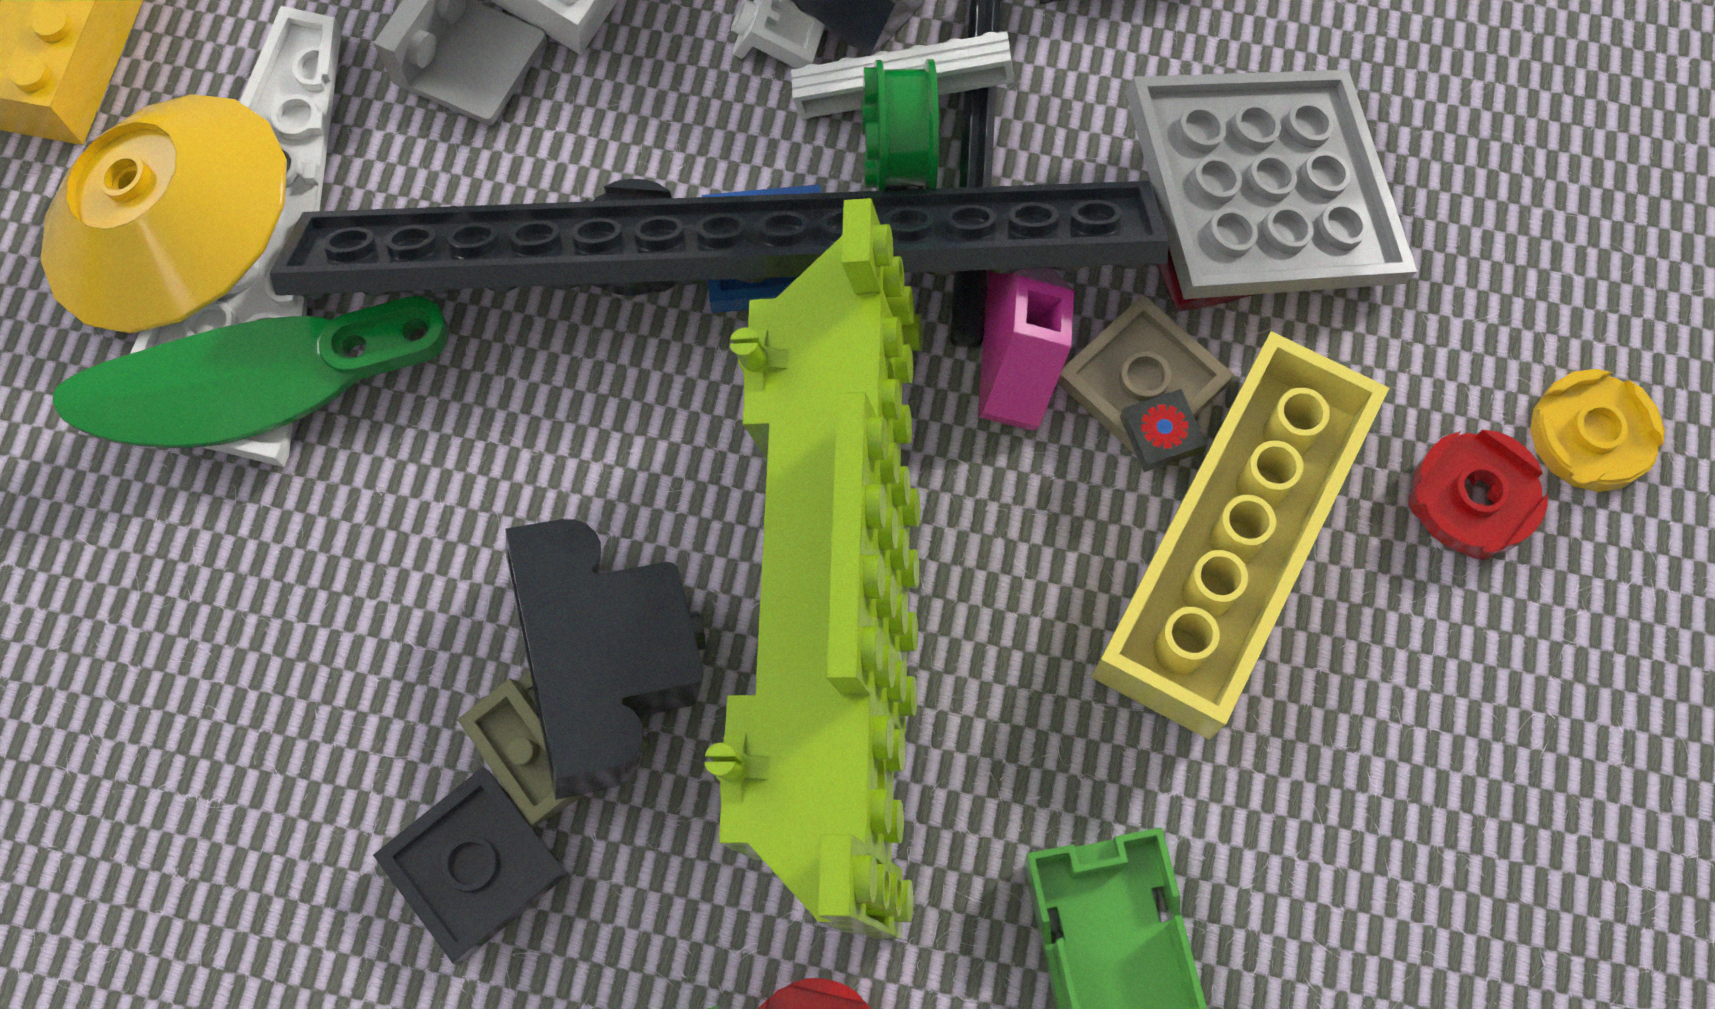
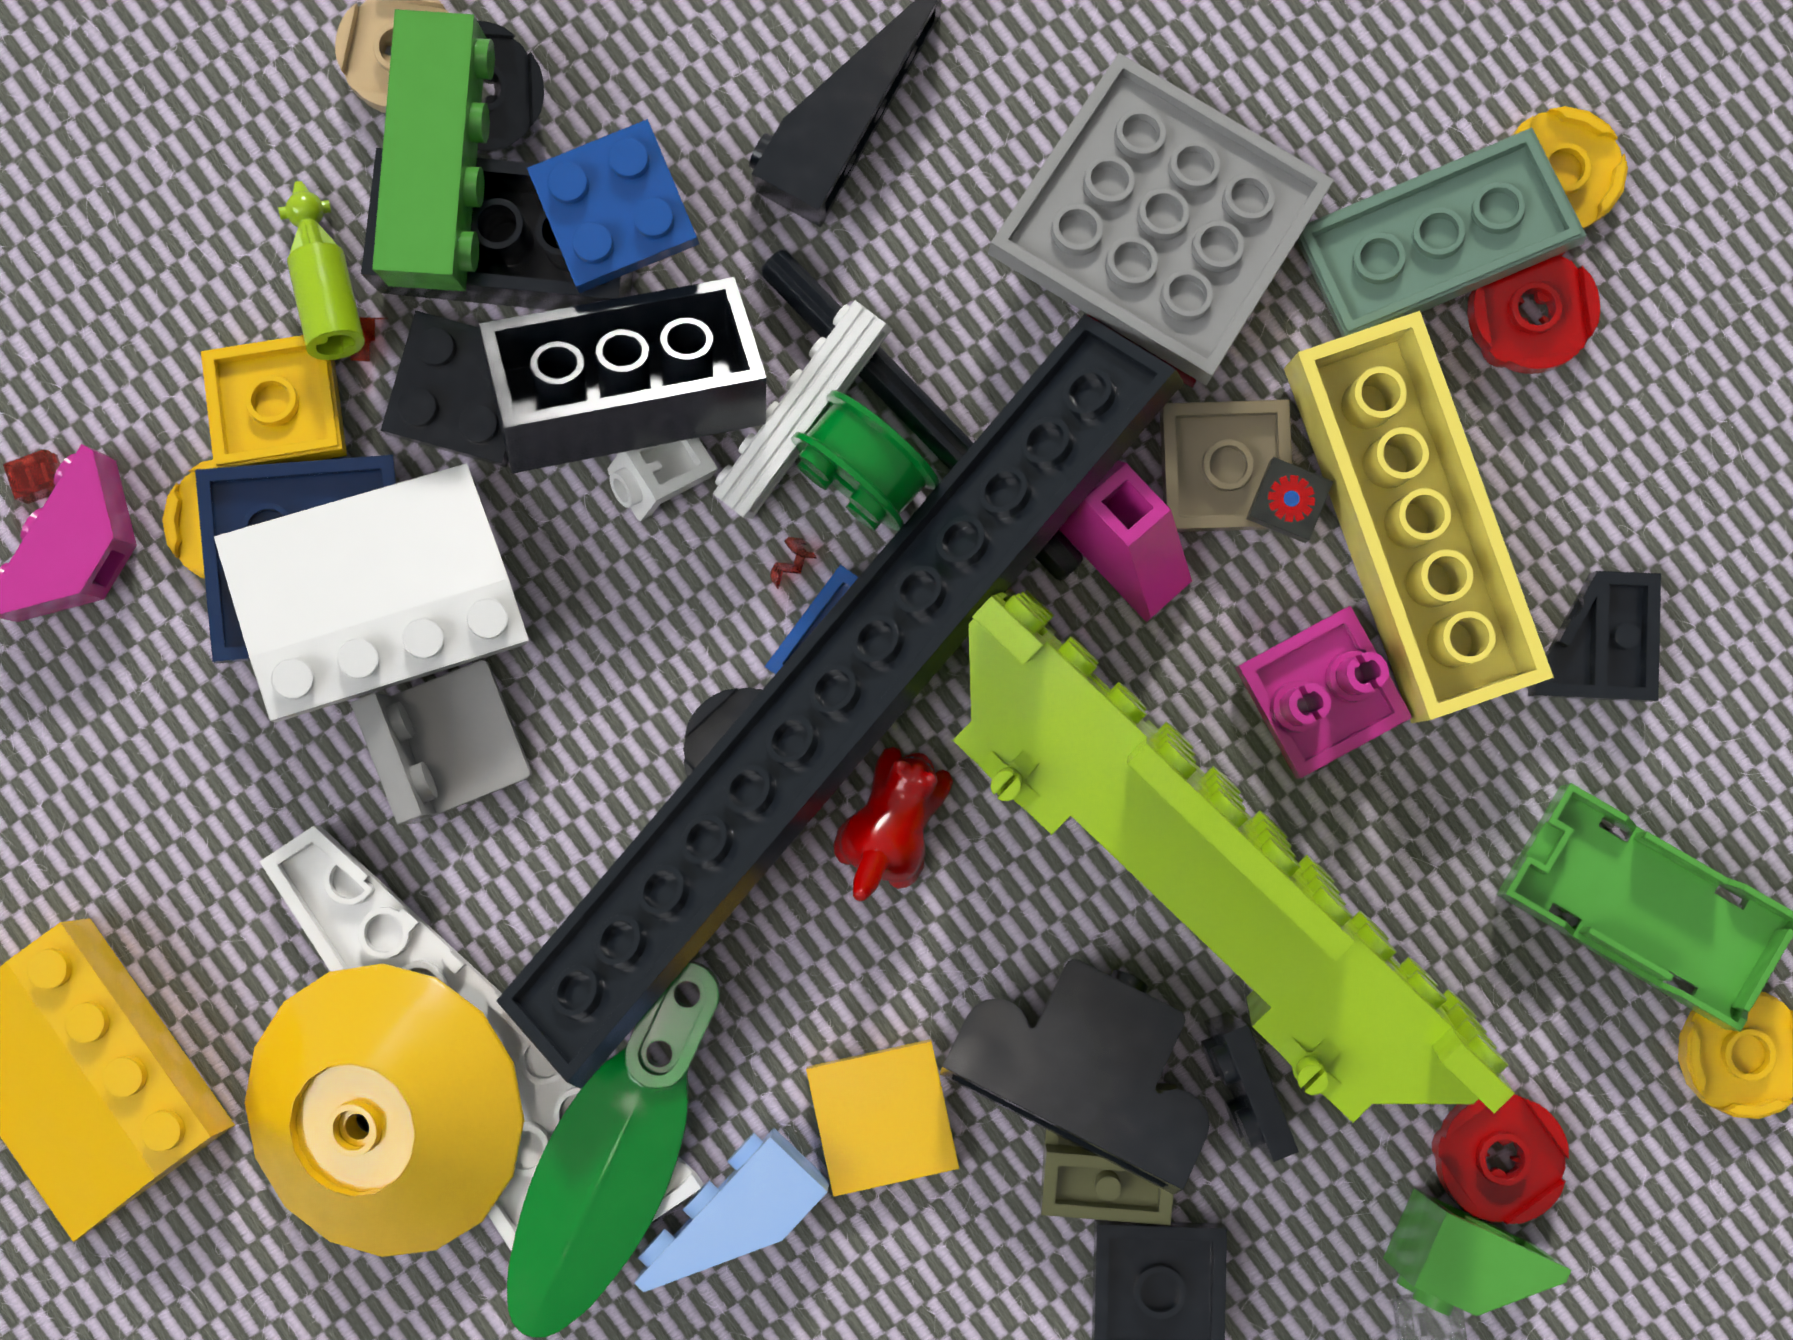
camera: 50 degrees left, 15 degrees up
(298, 505) = (747, 1212): none -> light blue slope
(436, 549) = (882, 1117): none -> yellow tile
(658, 371) = (888, 832): none -> red animal
(677, 800) = (1255, 1105): none -> black plate
(806, 154) = (797, 548): none -> clear red piece
(1049, 587) = (1323, 692): none -> dark pink plate
(1296, 767) = (1608, 641): none -> black wing
(1467, 378) = (1441, 234): none -> sand green tile

